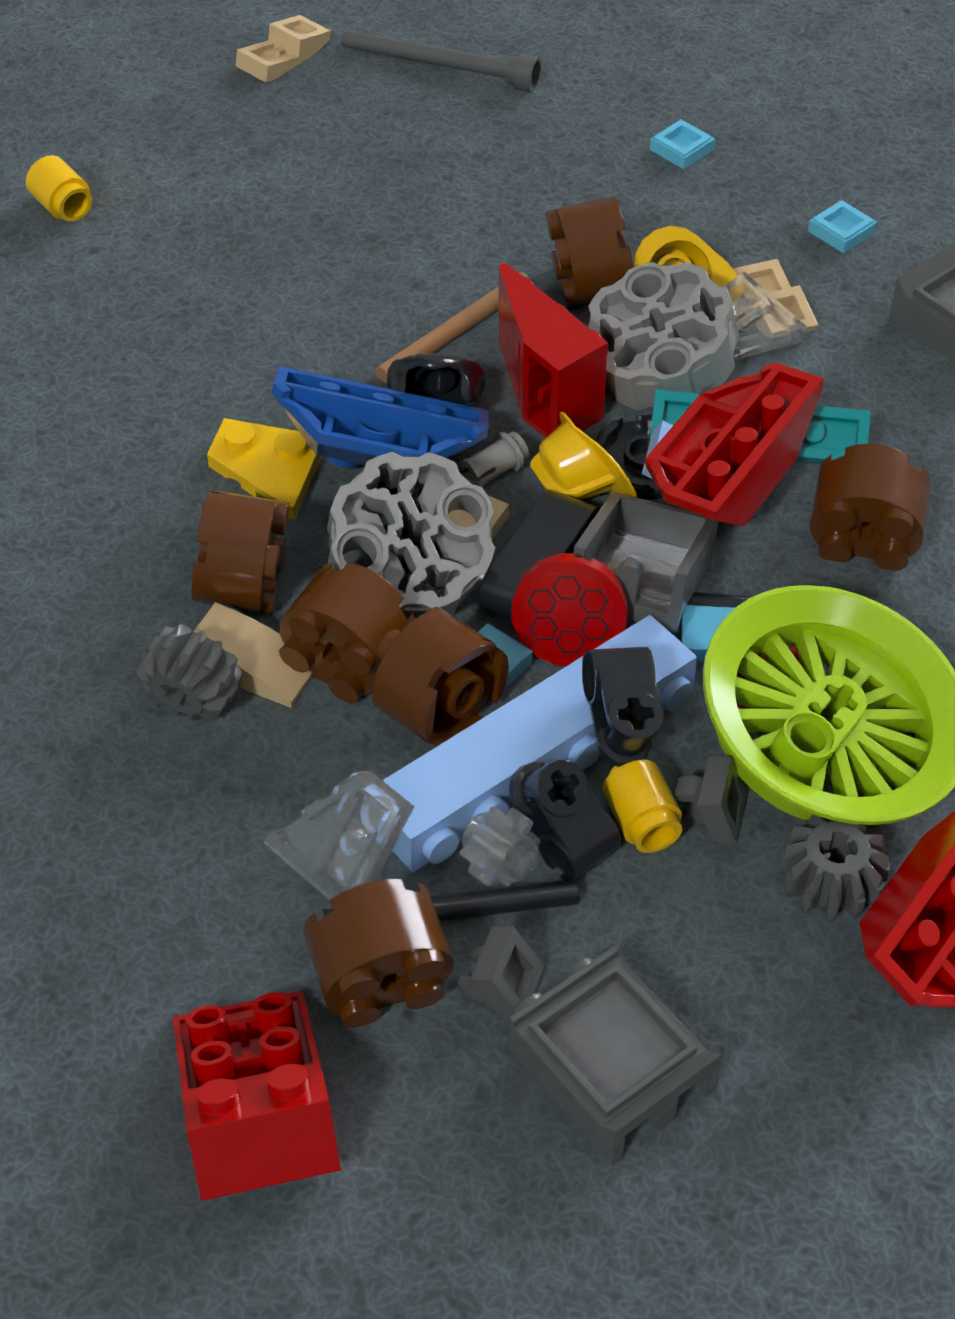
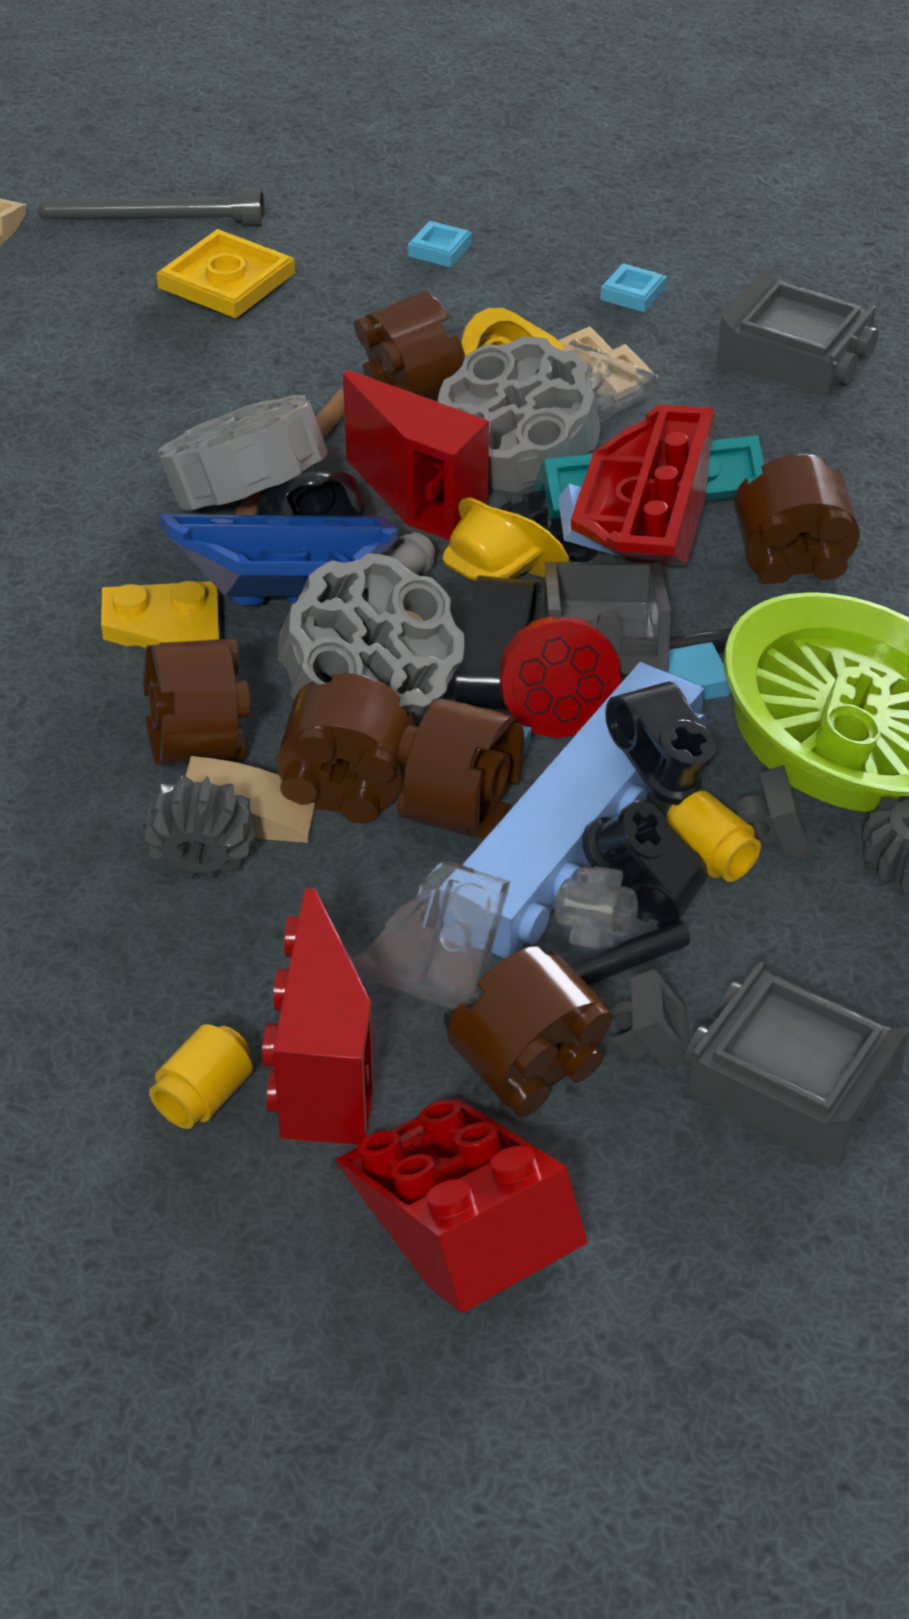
camera: 20 degrees left, 5 degrees down
(90, 906) = (201, 1075): none -> yellow brick
(188, 906) = (322, 1036): none -> red slope
(390, 319) = (243, 452): none -> light grey connector
(473, 134) = (226, 273): none -> yellow plate

